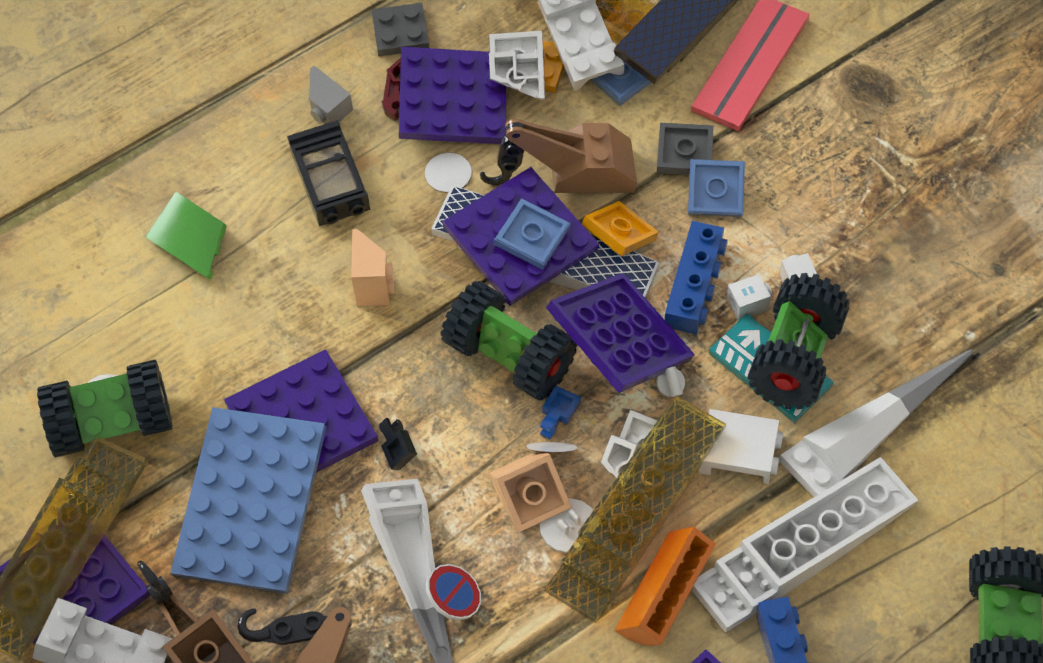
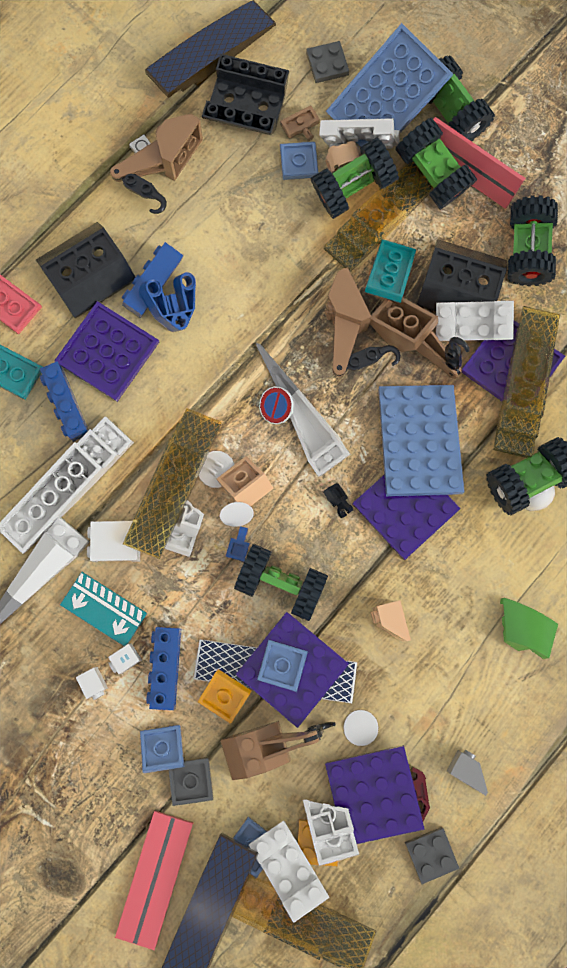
camera: 160 degrees right, 20 degrees up
(328, 173) = (446, 703): black door -> none
(620, 332) = (206, 601): dark purple plate -> none
(665, 586) = (147, 435): orange brick -> none
(671, 382) = (168, 581): white plate -> none
(791, 362) = (81, 642): black plate -> none

